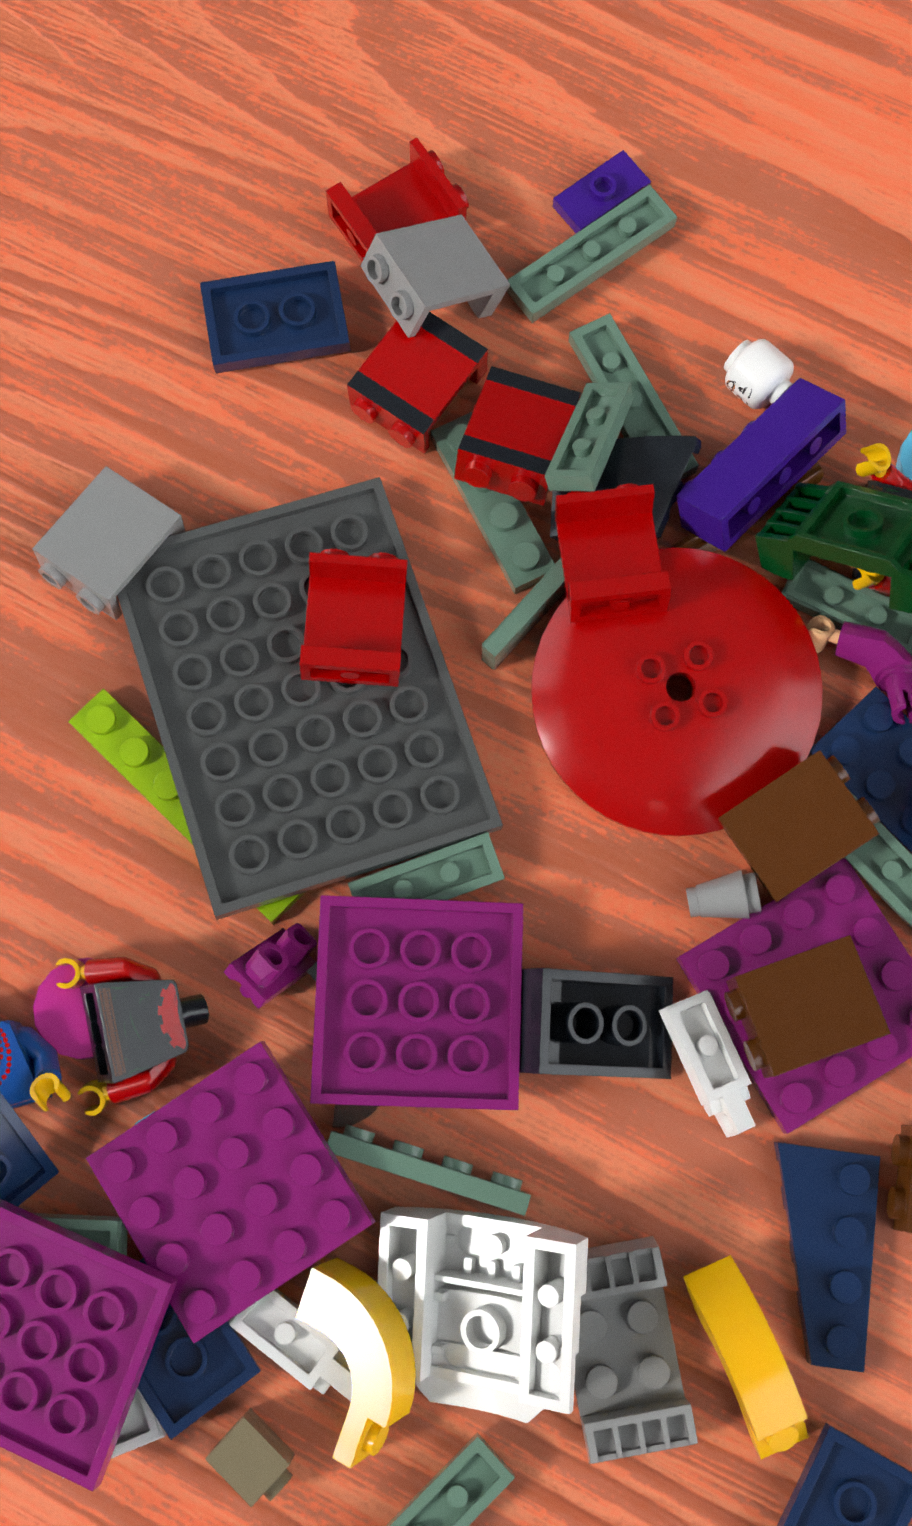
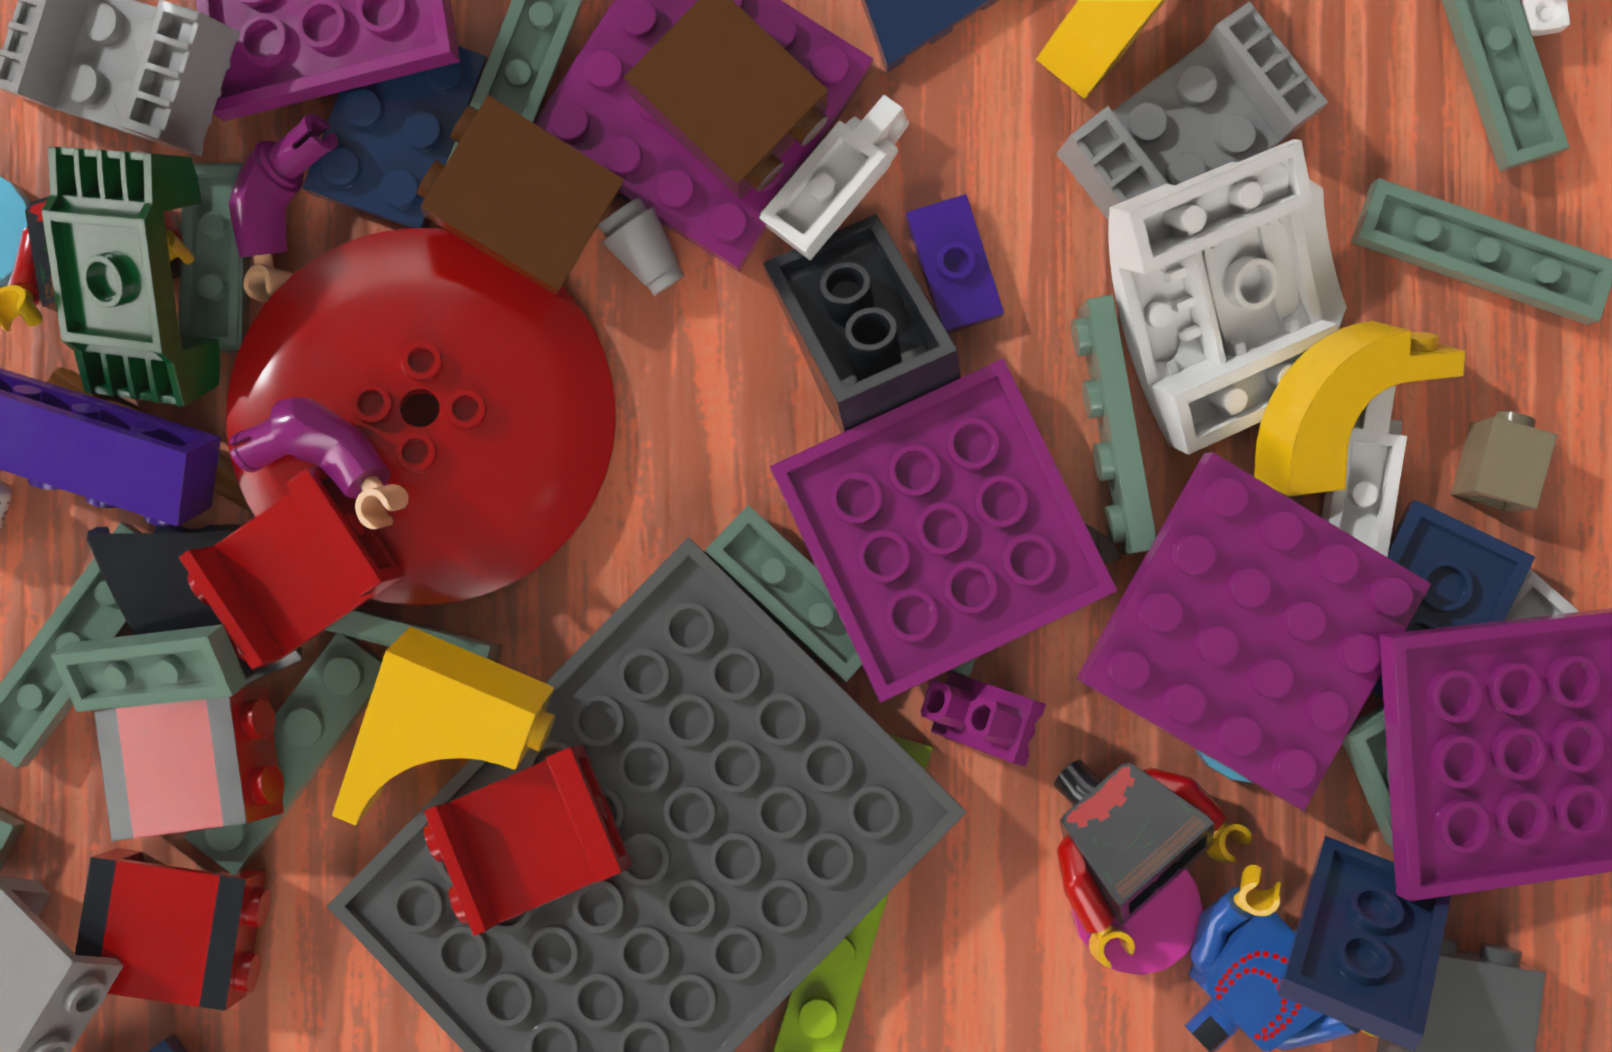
camera: 115 degrees left, 10 degrees up
(471, 605) = (438, 706): none -> yellow arch
(606, 1116) = (954, 263): none -> dark purple plate
(680, 616) = (329, 441): none -> magenta arm

